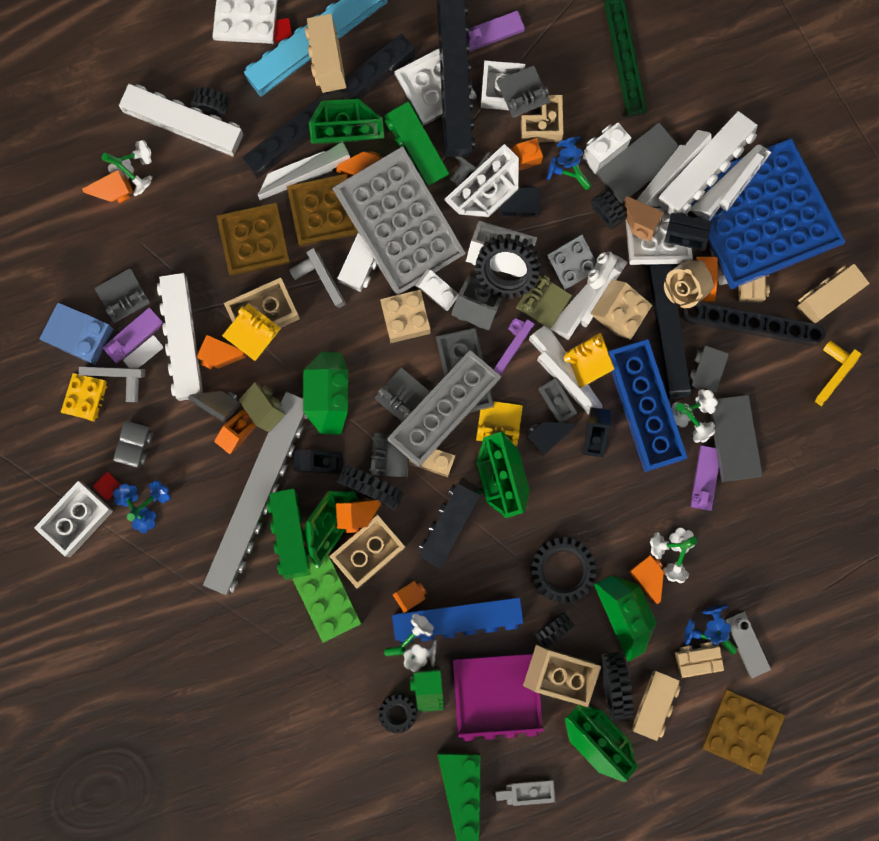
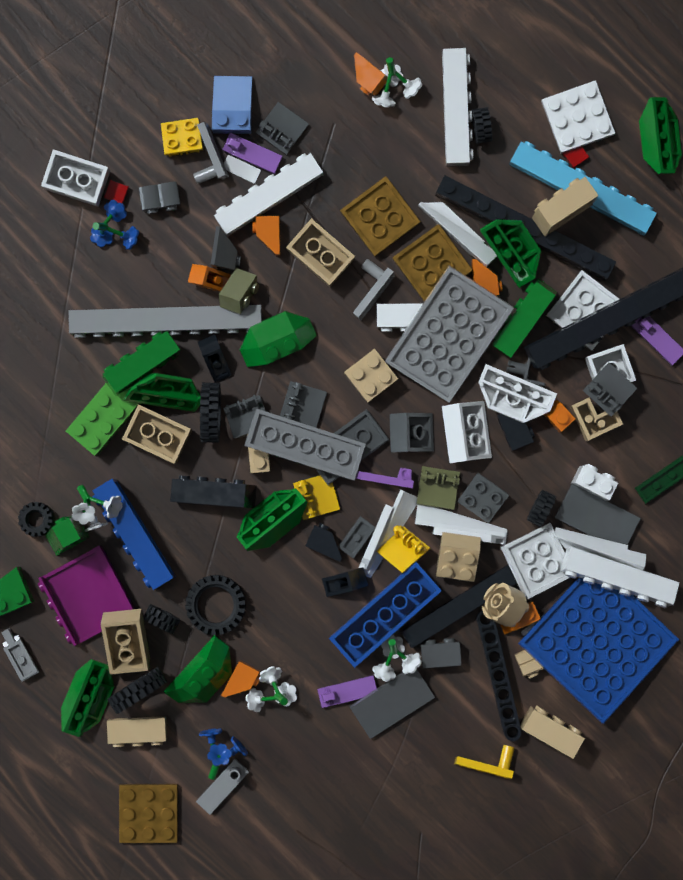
camera: 70 degrees right, 5 degrees up
(251, 331) = (296, 253): yellow hinge -> none
(355, 514) = (182, 410): orange slope -> none
(410, 596) = (136, 486): orange slope -> none
(437, 290) = (406, 393): white plate -> none
(514, 246) = (467, 440): black tyre -> none
(569, 157) = (568, 455): blue plant -> none
(601, 270) = (483, 525): white plate -> none
(642, 218) = (544, 541): medium nougat slope -> none
(688, 231) = (550, 584): black brick -> none
(699, 660) = (190, 750): tan brick -> none
(729, 187) = (612, 605): white wedge -> none

